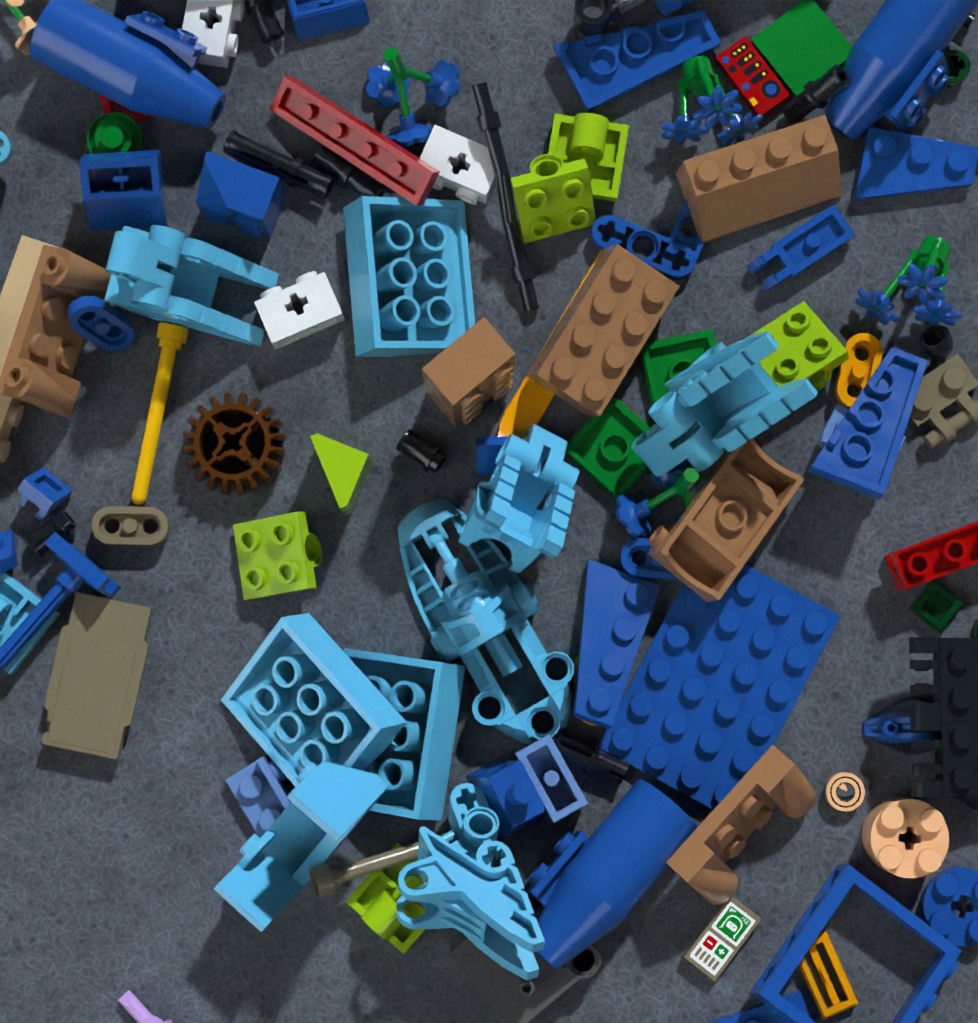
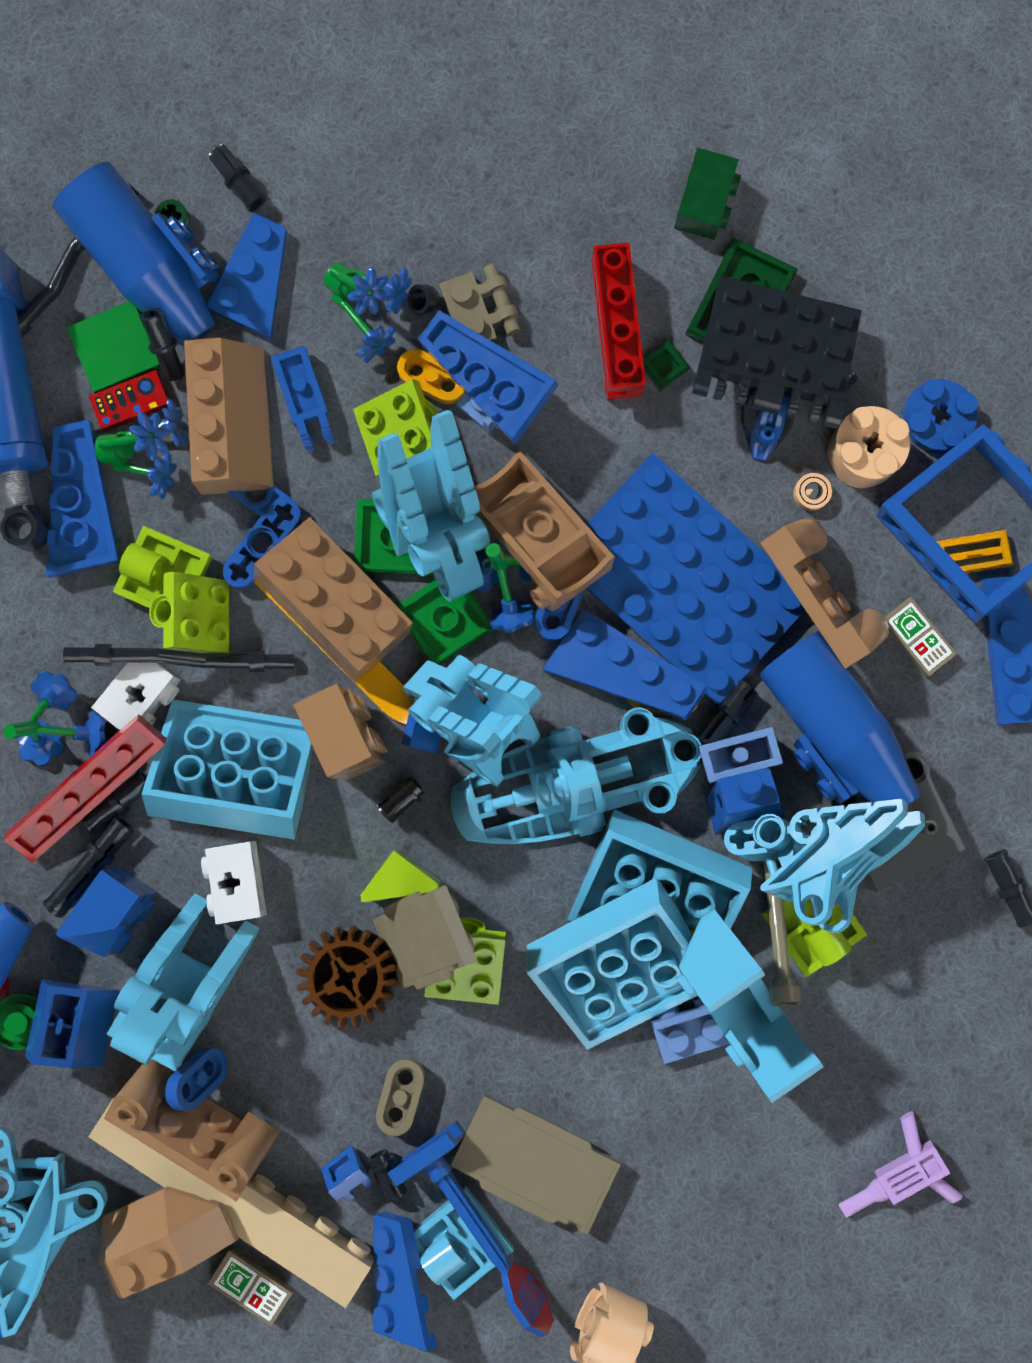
camera: 75 degrees left, 0 degrees up
(170, 340) = (231, 1014): yellow piece -> none
(291, 507) = (425, 938): none -> dark tan piece

